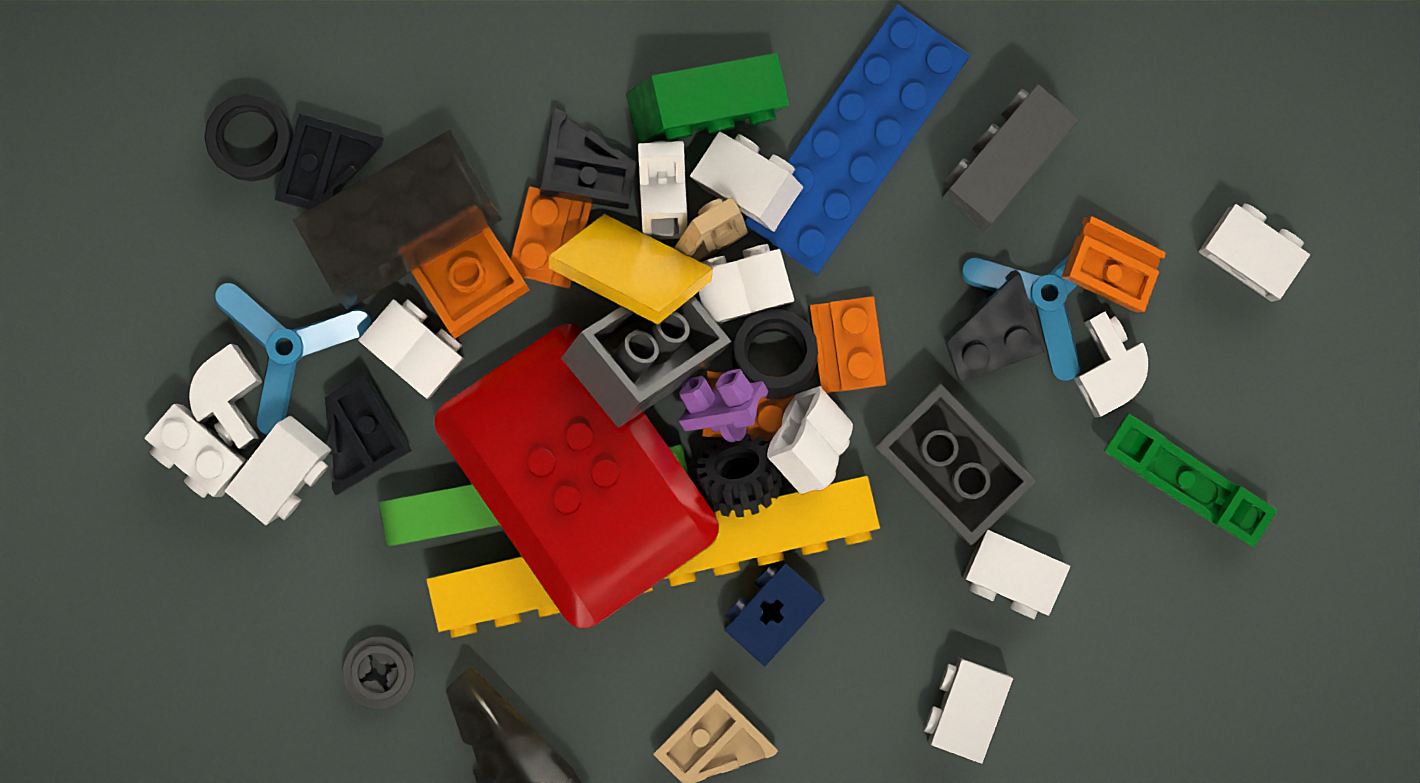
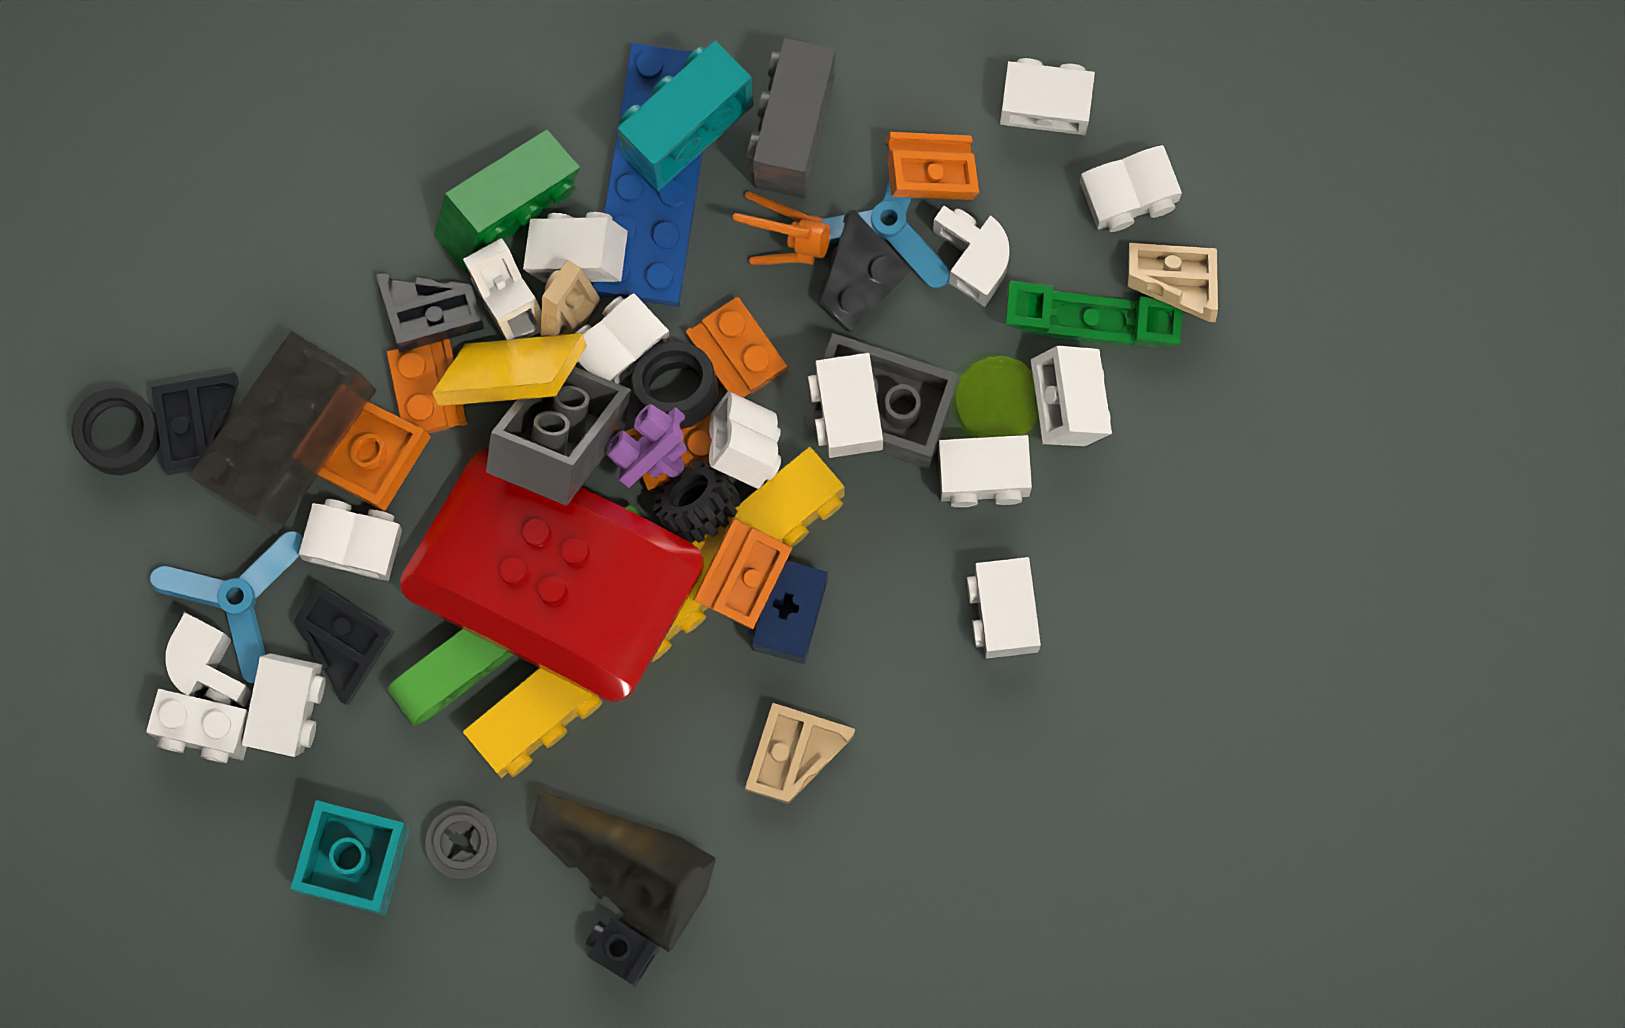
camera: 25 degrees left, 10 degrees down
(272, 641) = (350, 858): none -> teal brick
(746, 566) = (742, 573): none -> orange plate
(910, 108) = (685, 114): none -> teal brick
(918, 464) = (847, 405): none -> white brick
(964, 276) = (808, 238): none -> orange plant
(1063, 513) = (997, 398): none -> clear neon green tile
(1131, 549) = (1071, 396): none -> white brick
(1284, 484) = (1176, 276): none -> tan wing
(1286, 378) = (1131, 188): none -> white brick

